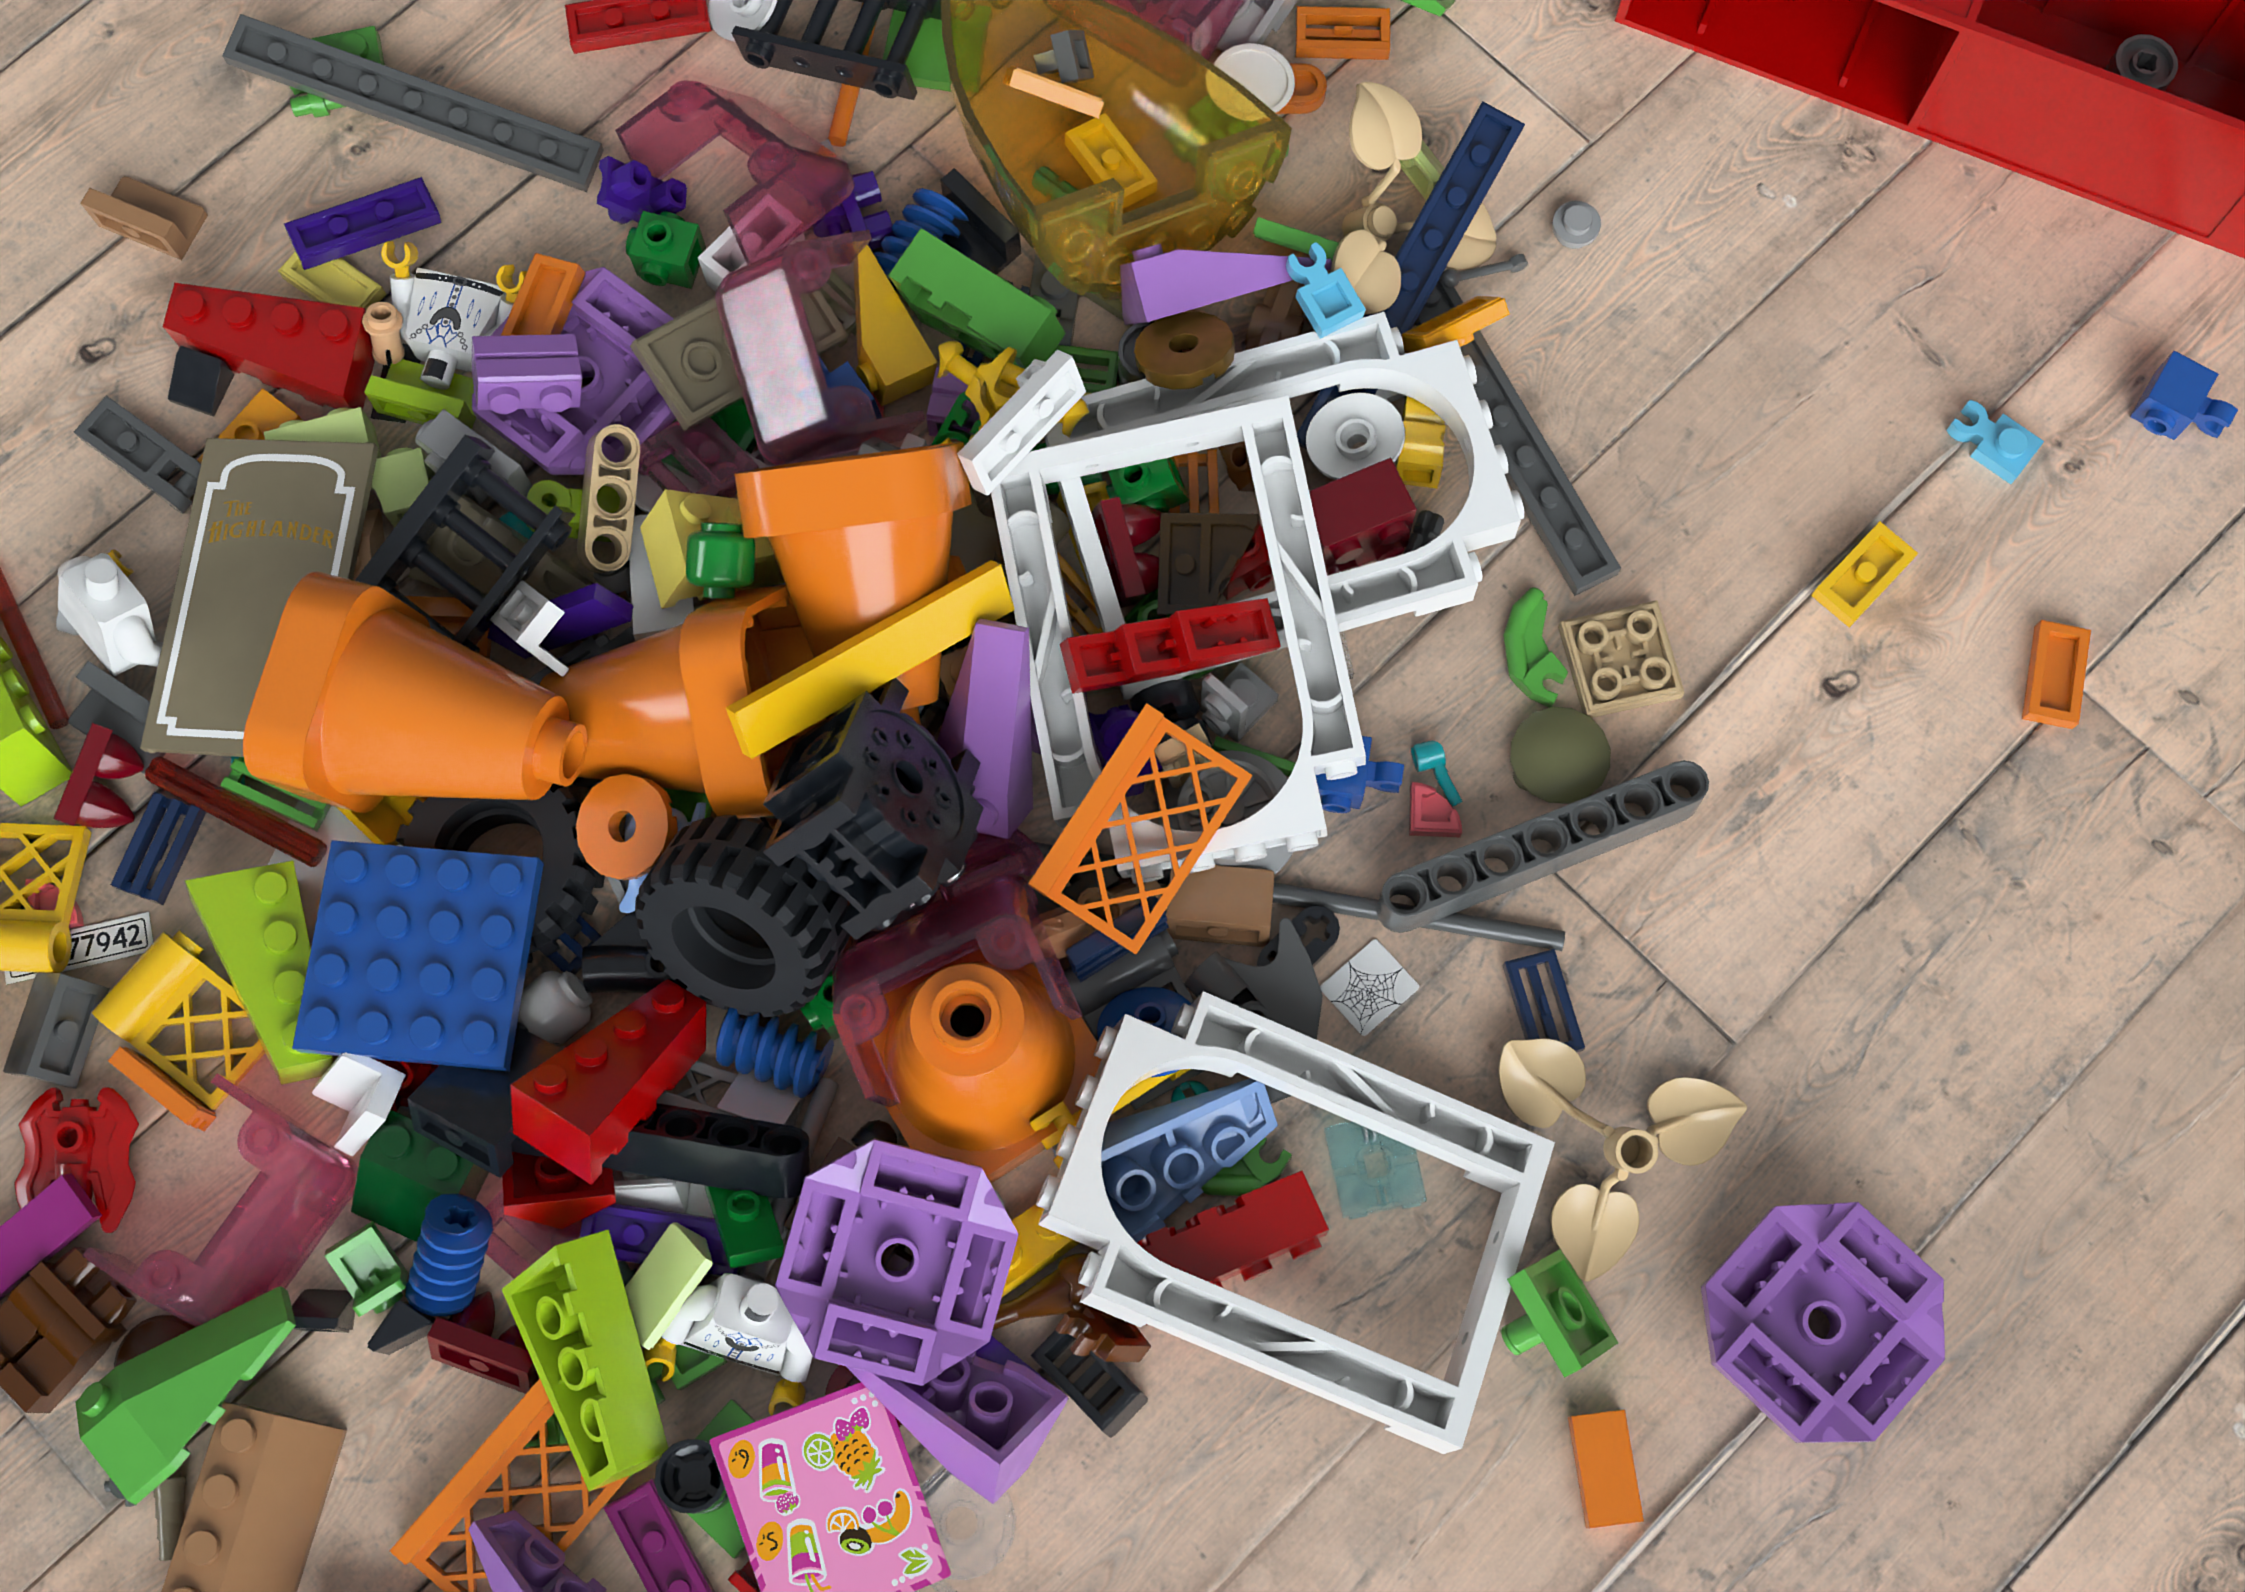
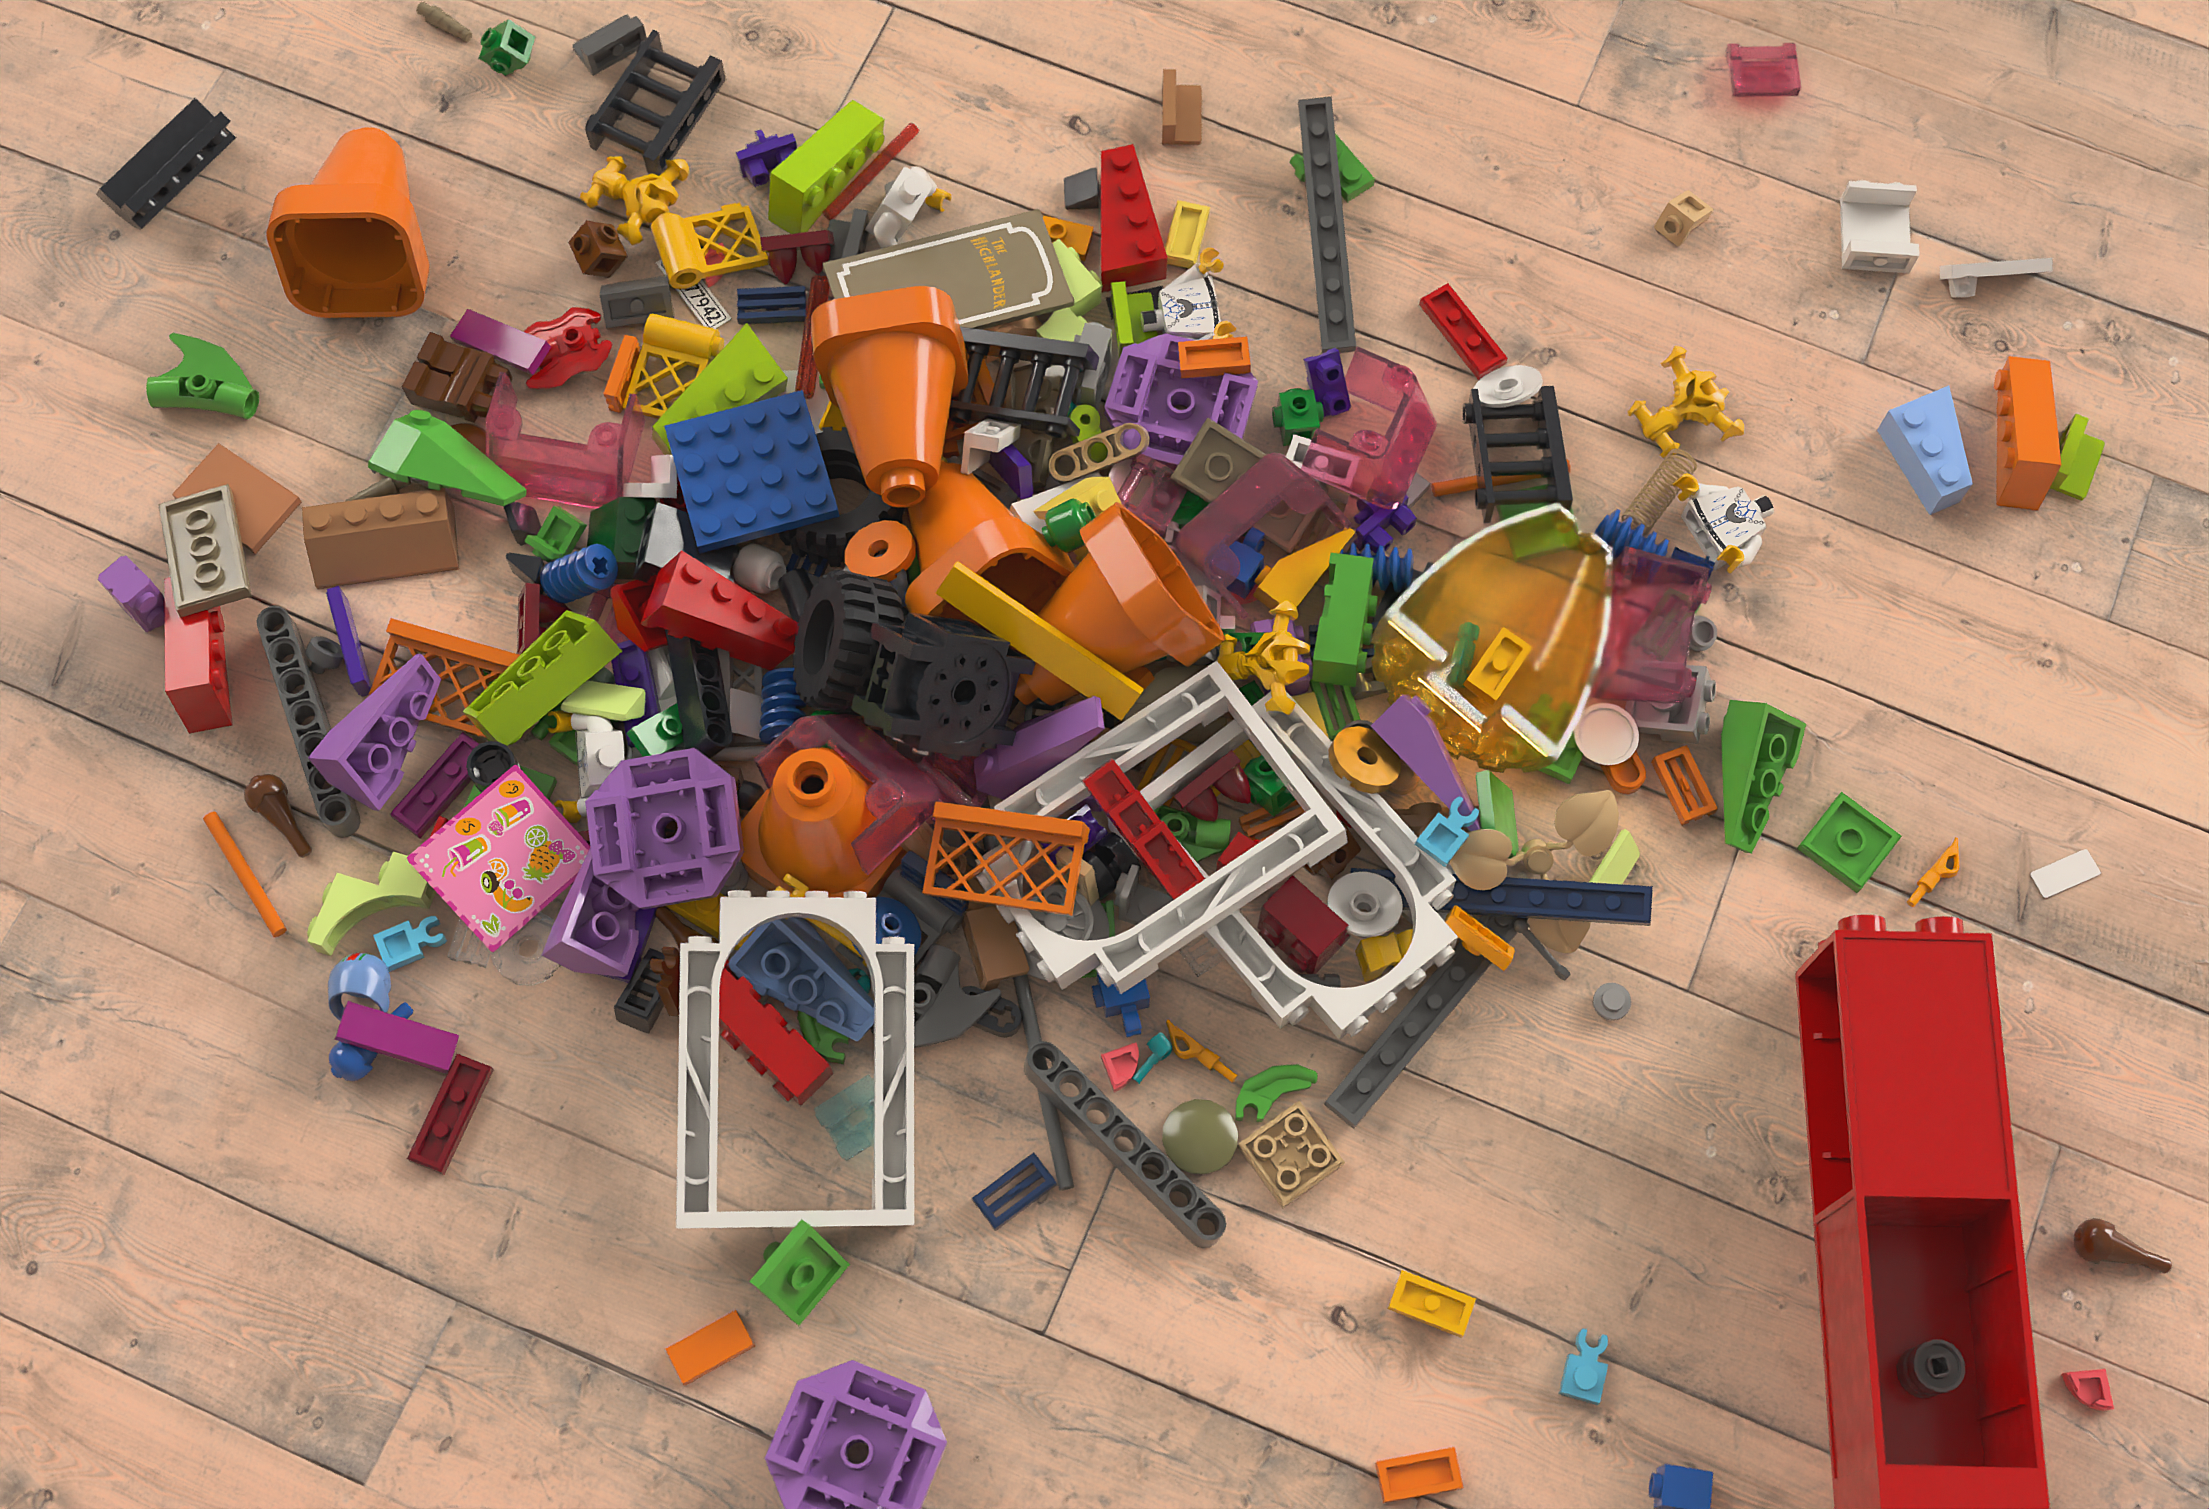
camera: 65 degrees right, 5 degrees down
(140, 452) = (1019, 177): dark grey plate -> none
(362, 223) = (1232, 233): dark purple tile -> none
(384, 326) = (1162, 273): light nougat pin -> none
(526, 372) = (1157, 365): medium lavender brick -> none
(1043, 399) = (1249, 669): white hinge -> none
(1053, 91) = (1526, 605): light orange tile -> none
(1068, 57) = (1558, 605): dark grey tile -> none
(1199, 557) = (1219, 830): dark brown wing -> none
(1369, 987) = (981, 1071): white sticker -> none
(1448, 716) = (1203, 1055): none -> light orange hand
(1691, 1125) = (872, 1275): tan plant -> none

